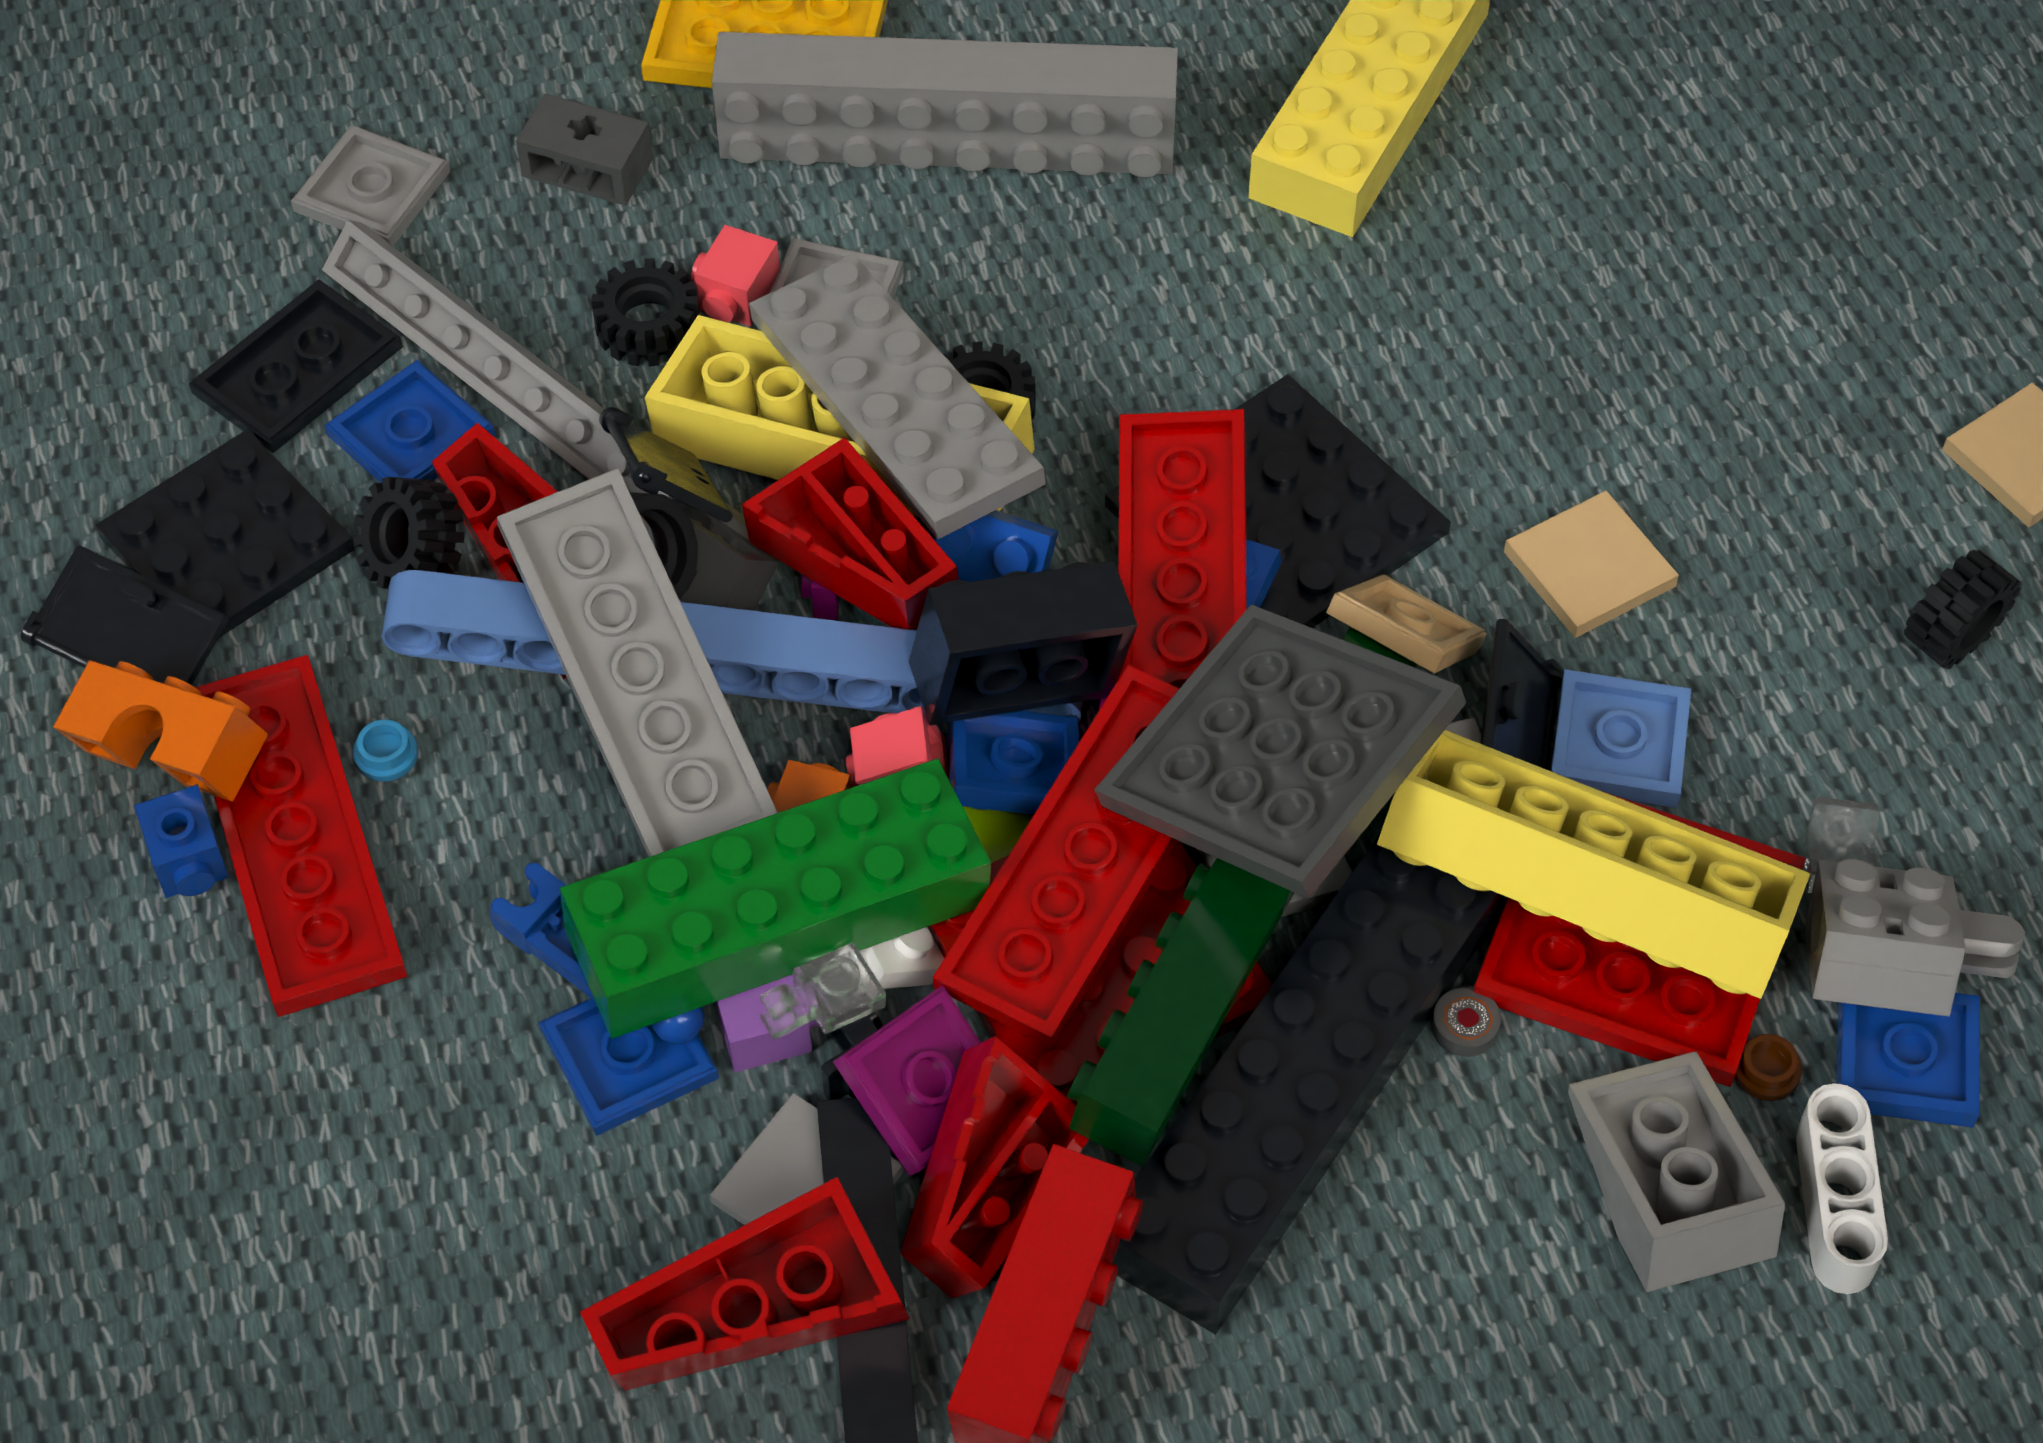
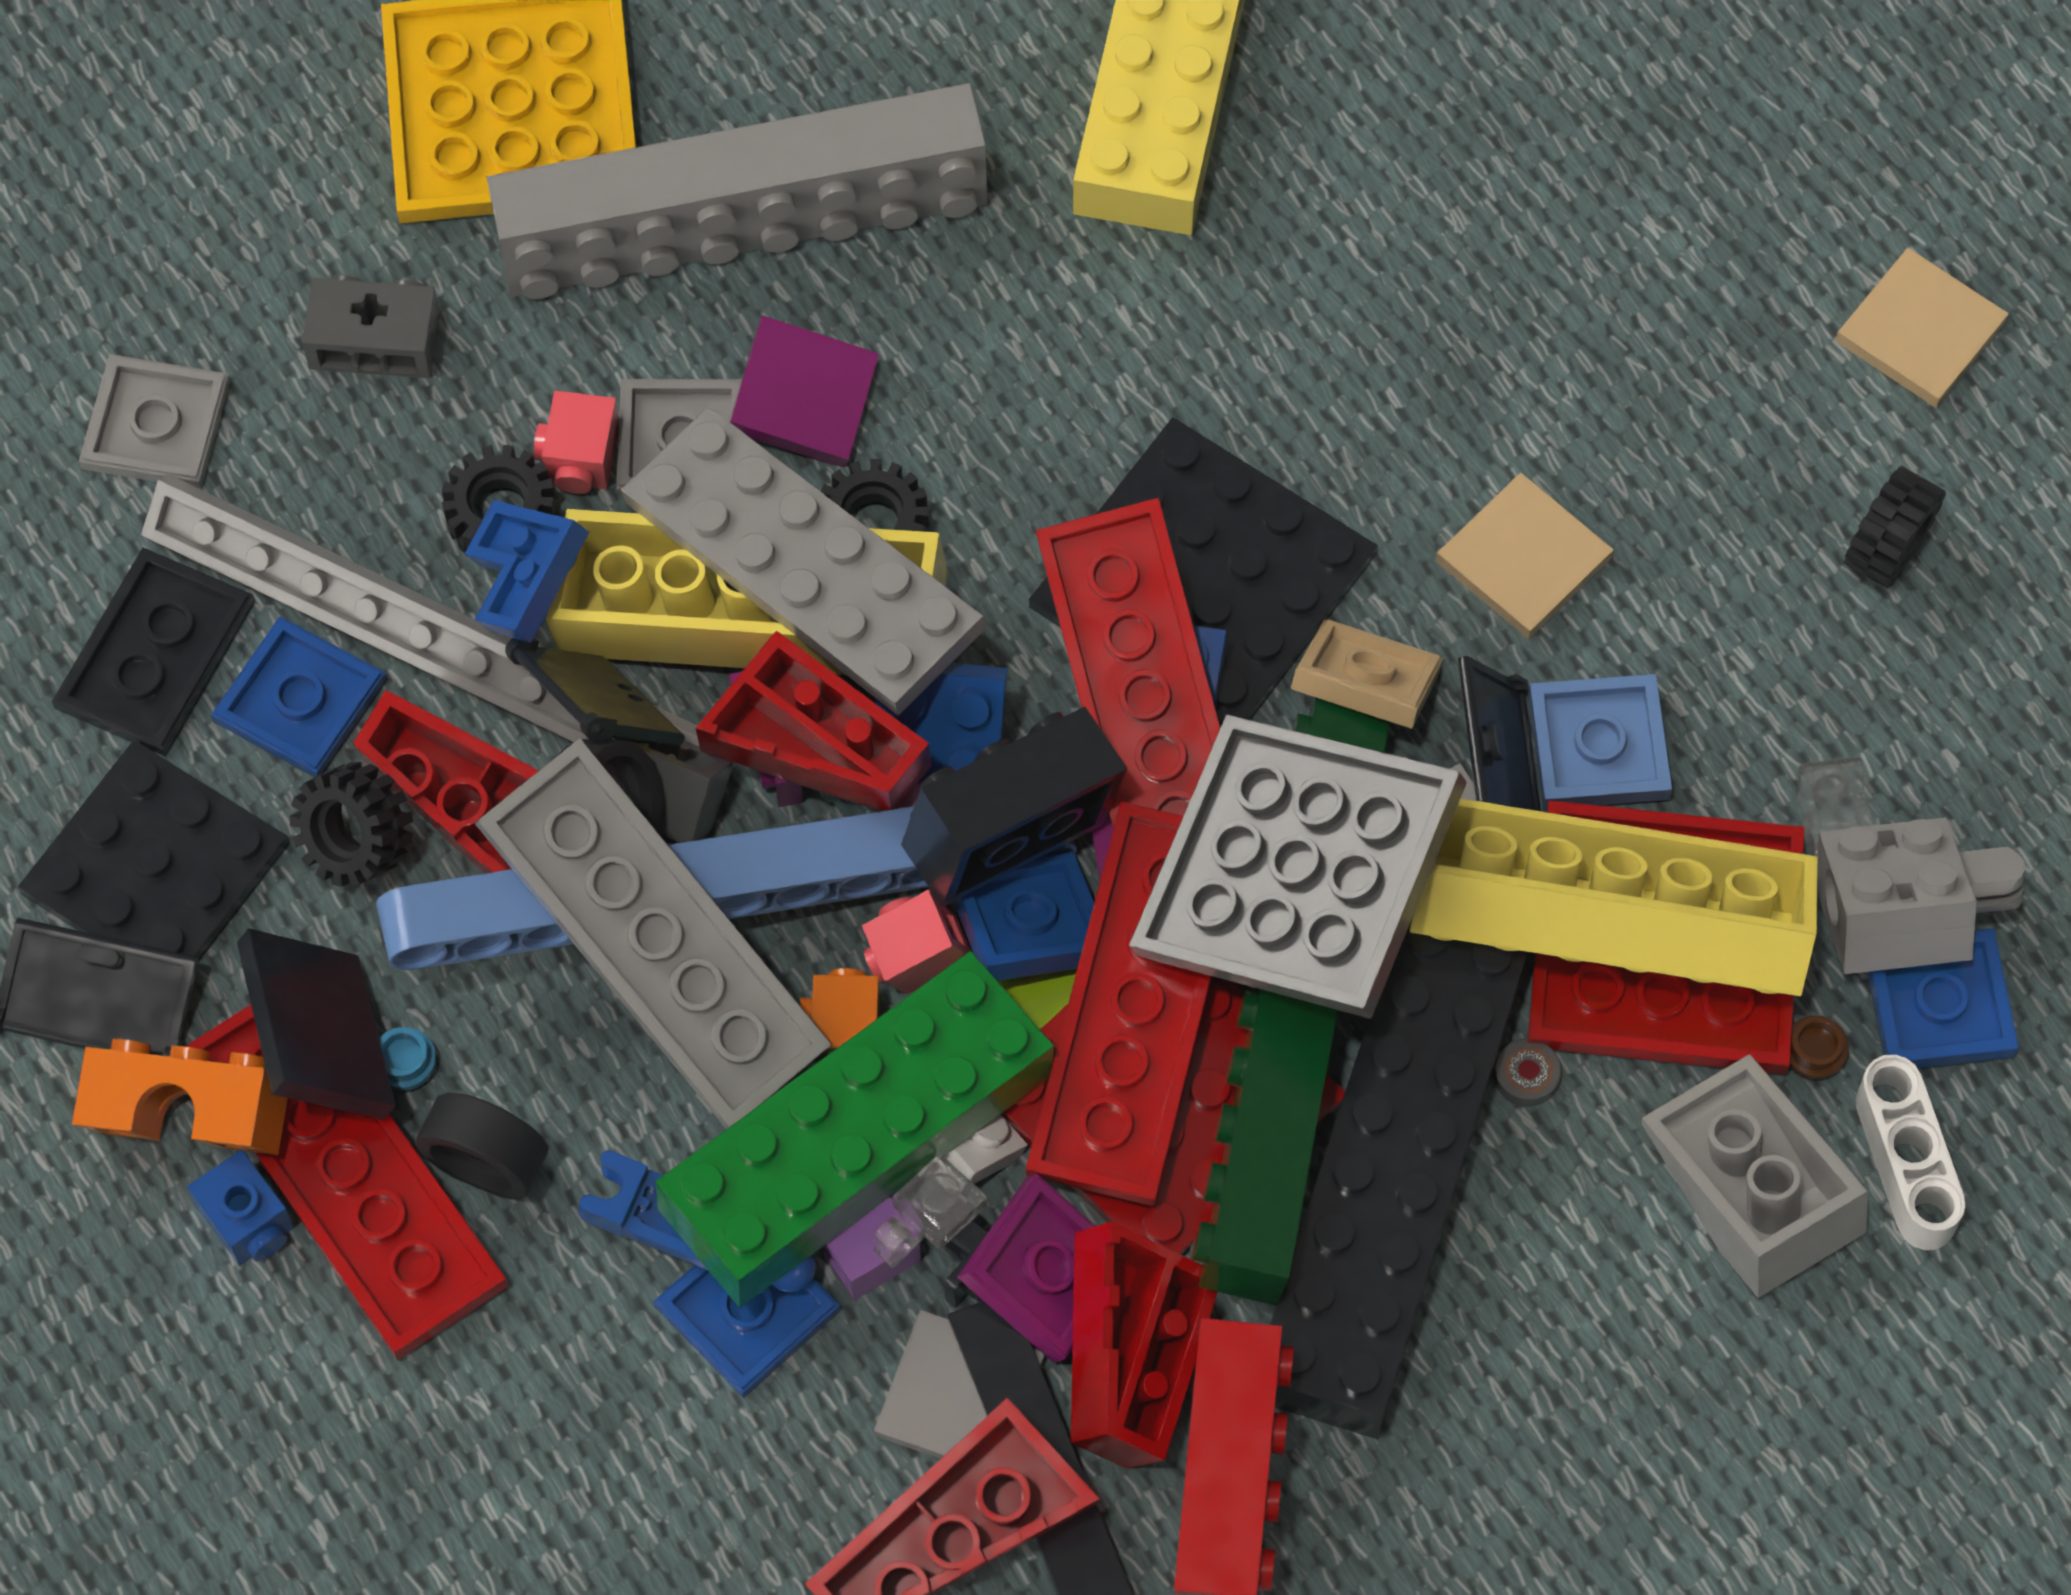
camera: 15 degrees left, 10 degrees up
(306, 692) = (315, 1024): none -> black tile
(423, 836) = (482, 1145): none -> black tyre
(641, 345) = (533, 560): none -> blue plate
(954, 280) = (803, 391): none -> magenta tile

